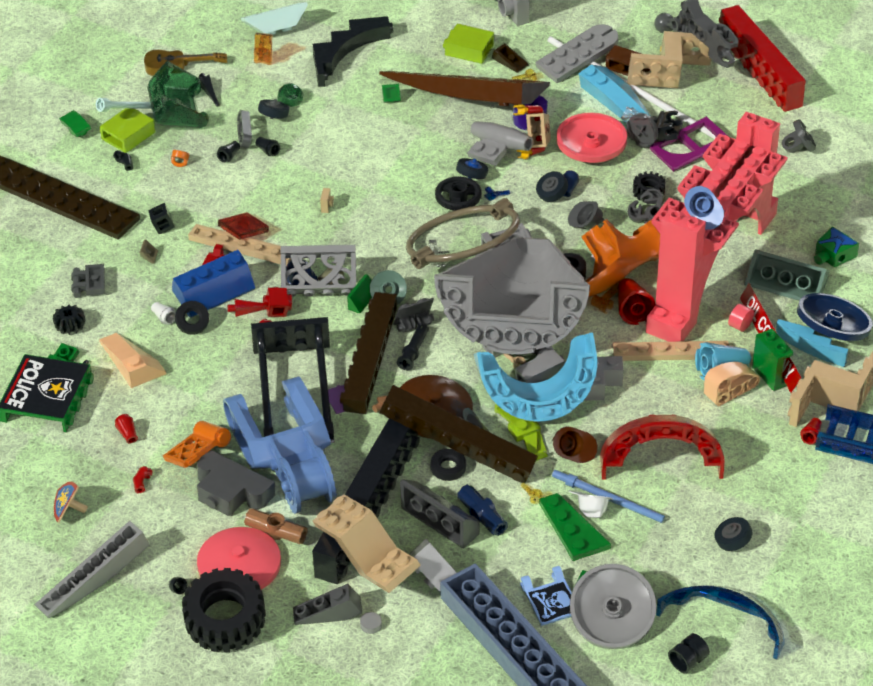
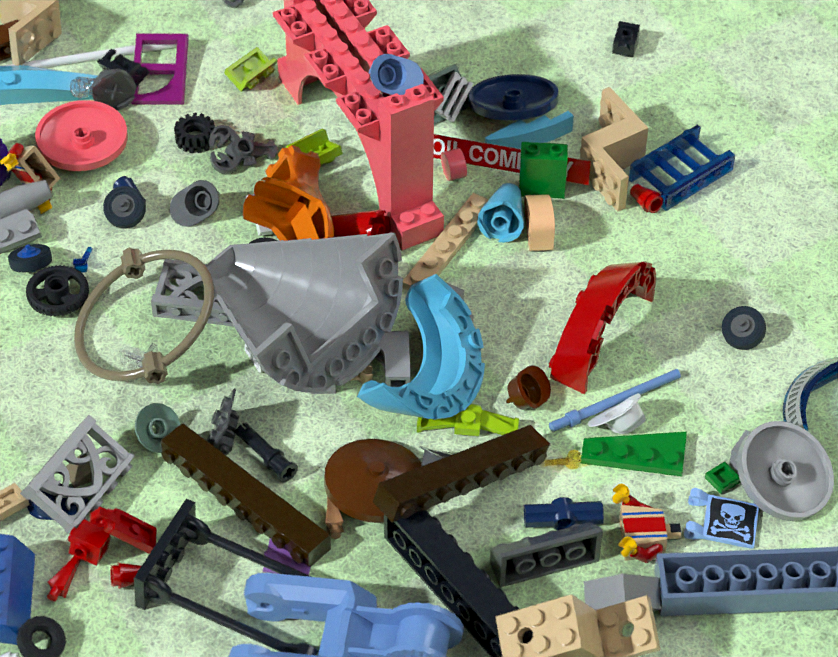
camera: 60 degrees left, 5 degrees up
(293, 303) = (125, 527): none -> red hinge
(360, 295) = (142, 459): green slope -> none
(448, 455) = (470, 525): black tyre -> none
(501, 554) = (642, 527): none -> torso
(818, 282) = (467, 87): none -> white tile
(835, 248) = (417, 42): green torso -> none

